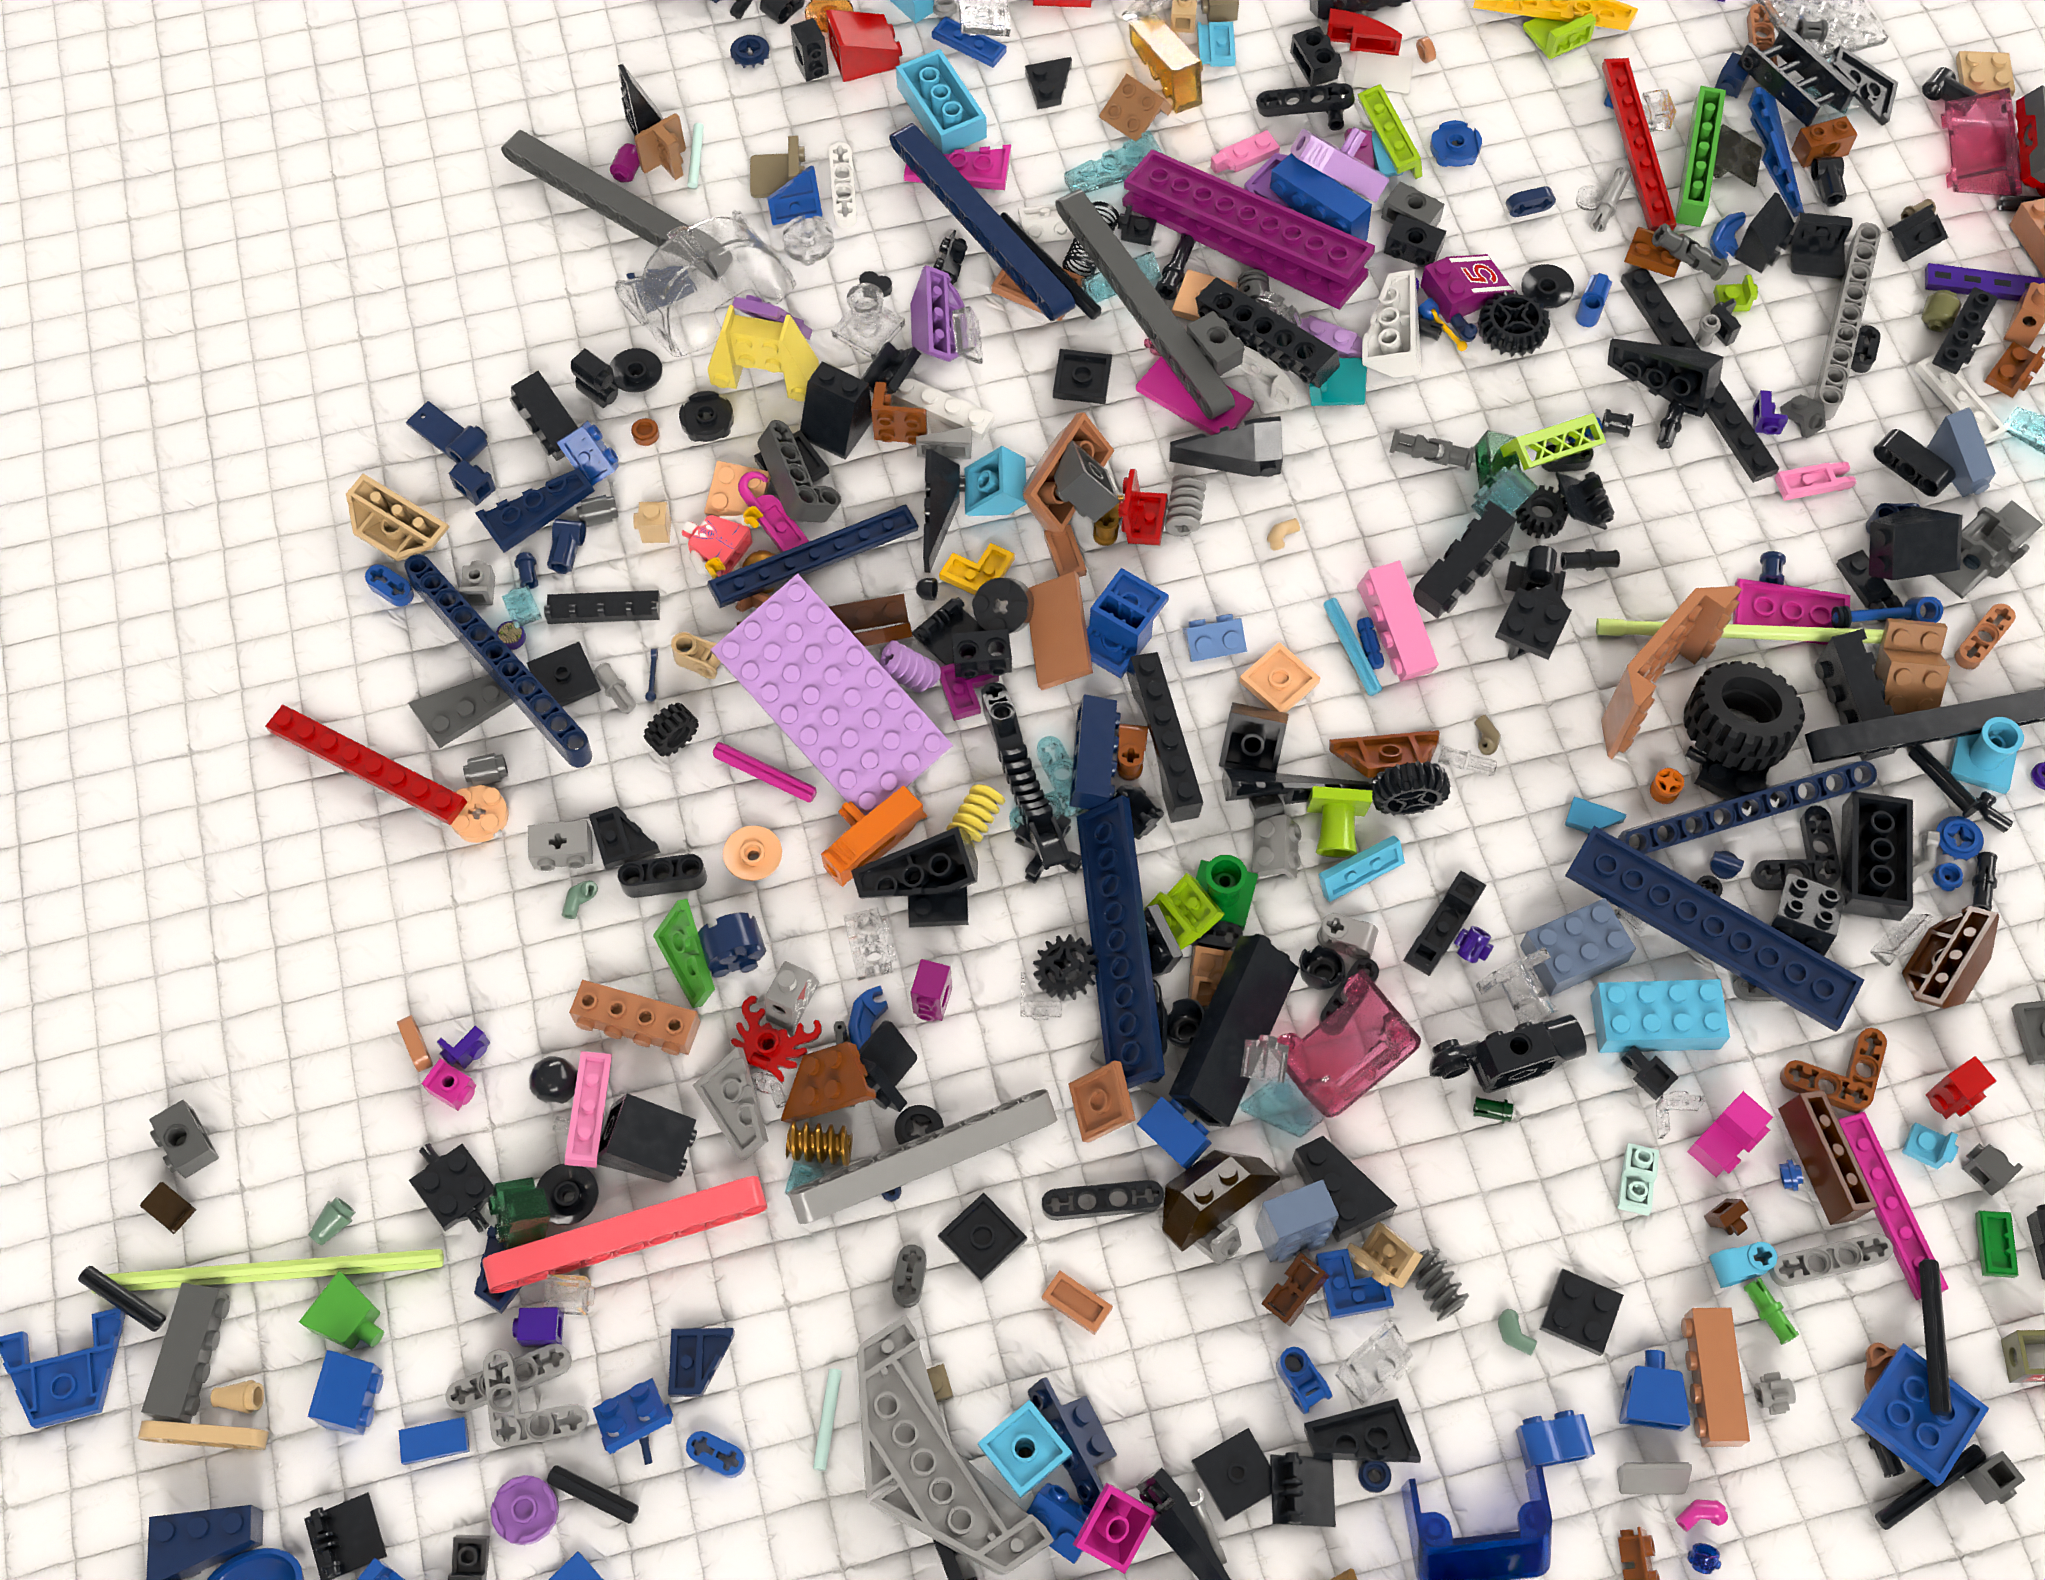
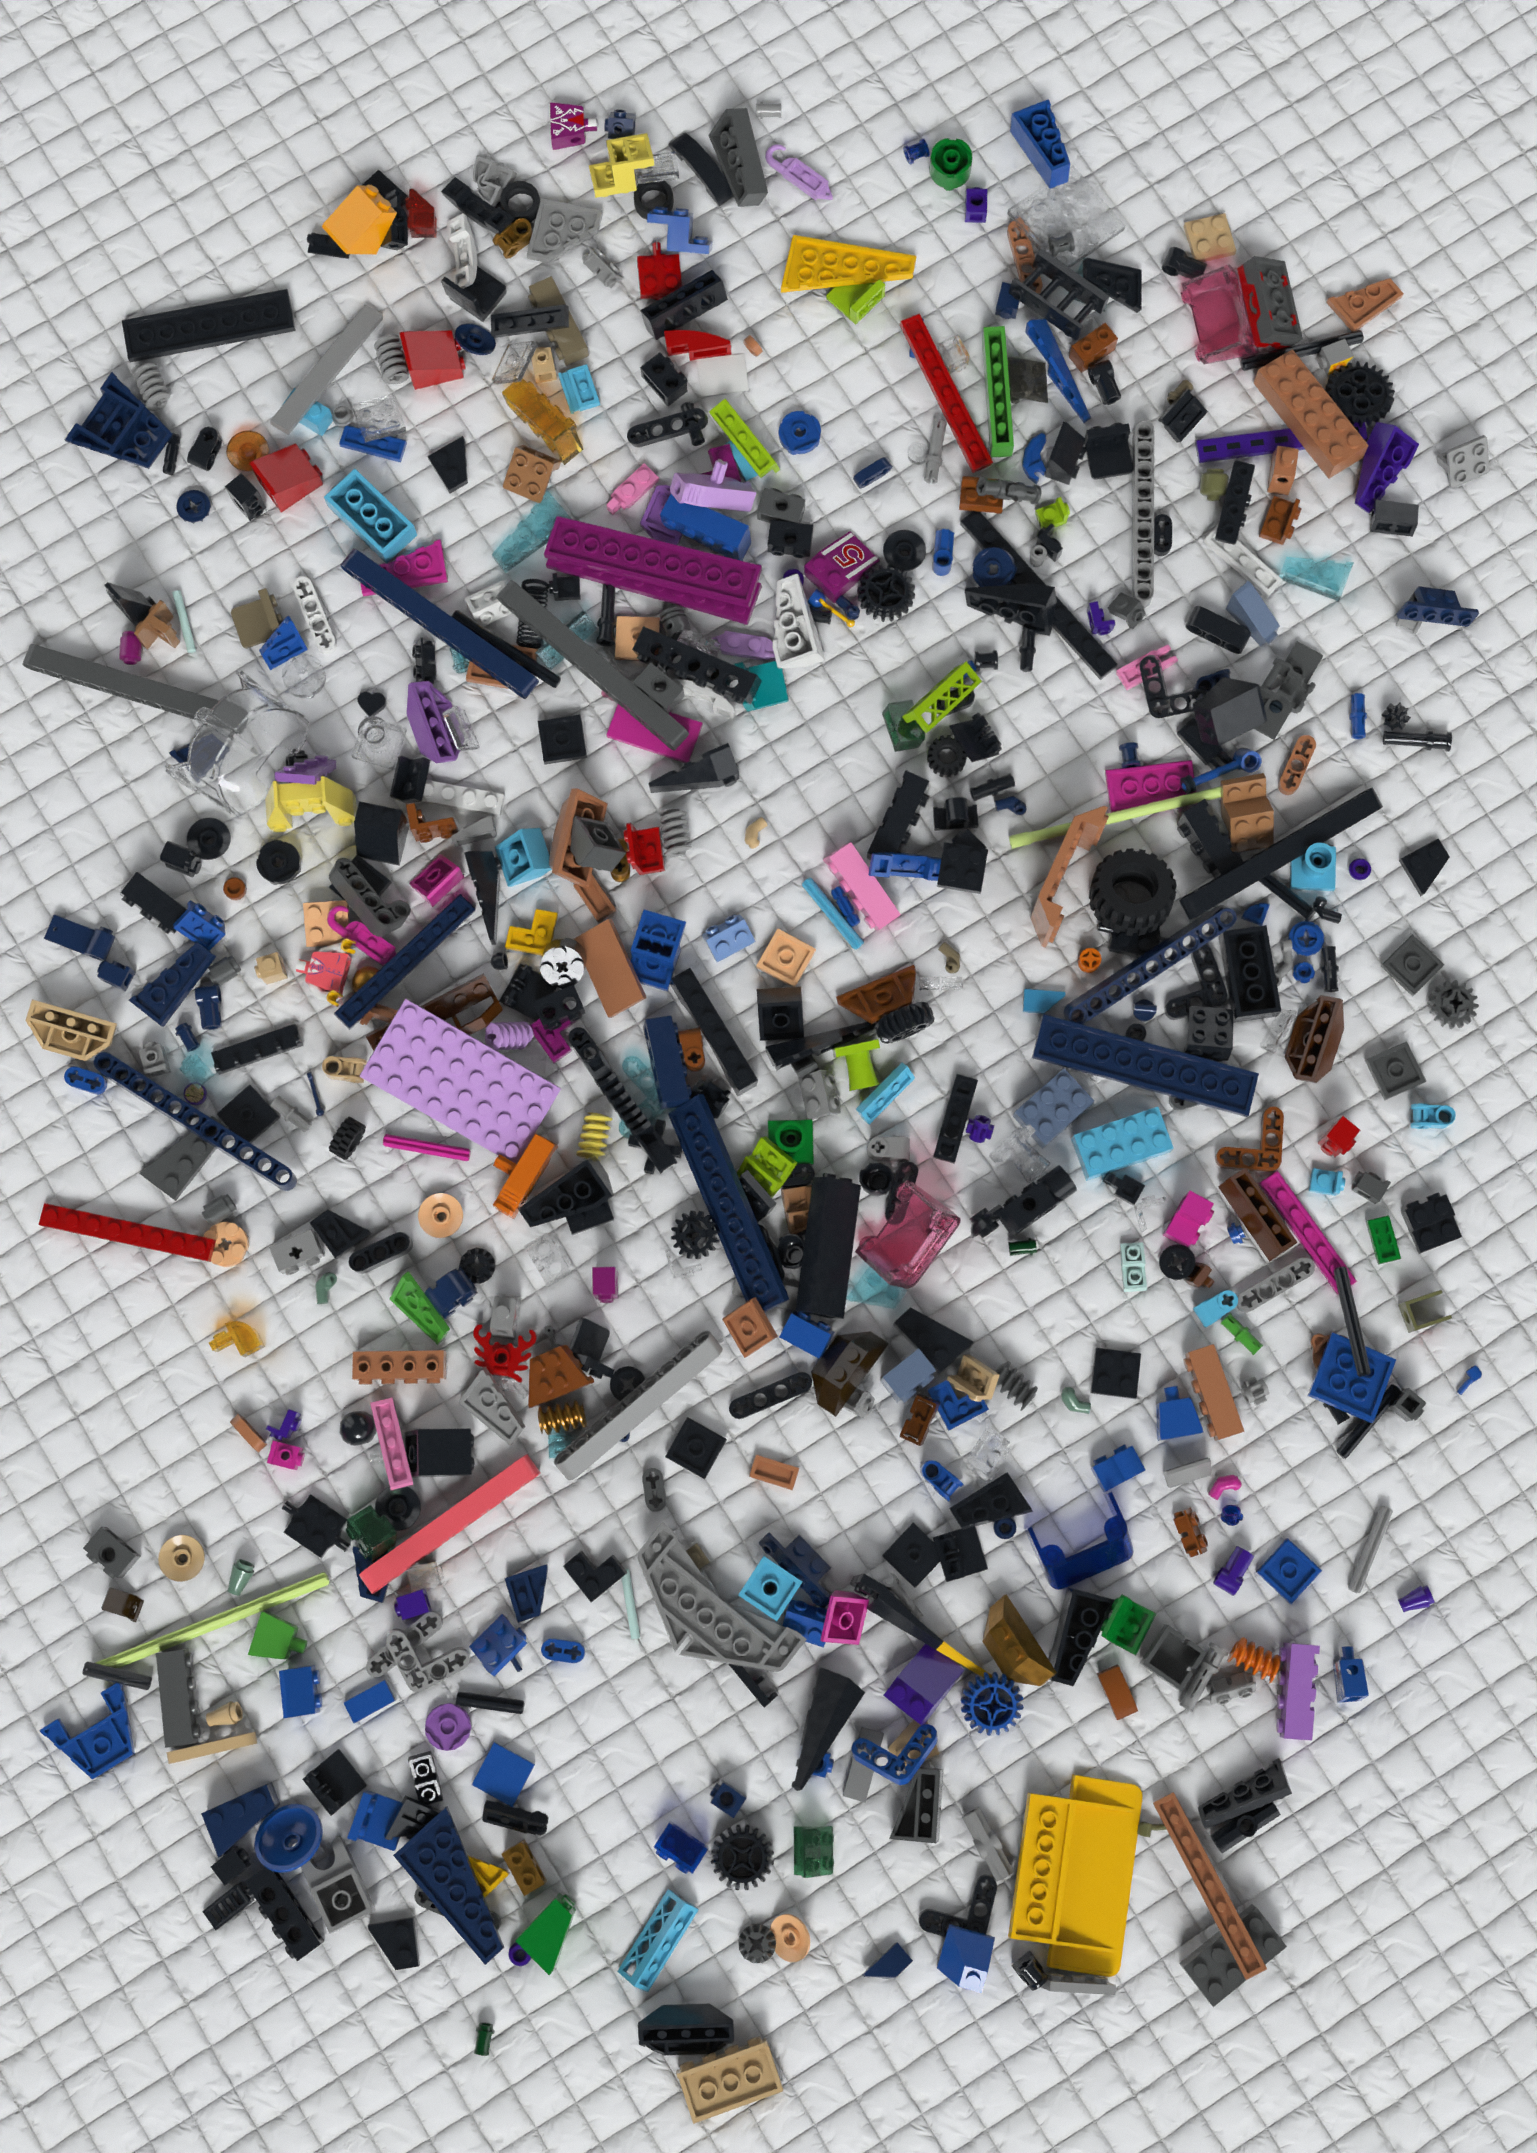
camera: 15 degrees left, 15 degrees up
(255, 1167) = (170, 1558): none -> tan dish
(450, 921) = (243, 1335): none -> clear yellow brick
(784, 937) = (484, 1272): none -> black gear
(791, 1371) = (594, 1580): none -> black plate
(864, 1014) = (561, 1315): blue piece -> none
(885, 484) = (437, 879): none -> dark pink slope
(990, 269) = (460, 663): none -> clear light blue pin
(1265, 1059) = (855, 1264): clear brick -> none
(1421, 447) = (846, 726): dark grey piece -> none
(1458, 612) = (904, 865): none -> blue slope
(1508, 491) = (916, 755): clear light blue brick -> none
(1609, 584) = (1011, 803): none -> dark blue arm
(1652, 315) = (998, 557): none -> dark blue plate
(1709, 1179) = (1167, 1259): none -> black gear
(1828, 513) = (1162, 696): none -> black beam
(1899, 789) = (1256, 913): none -> blue tile

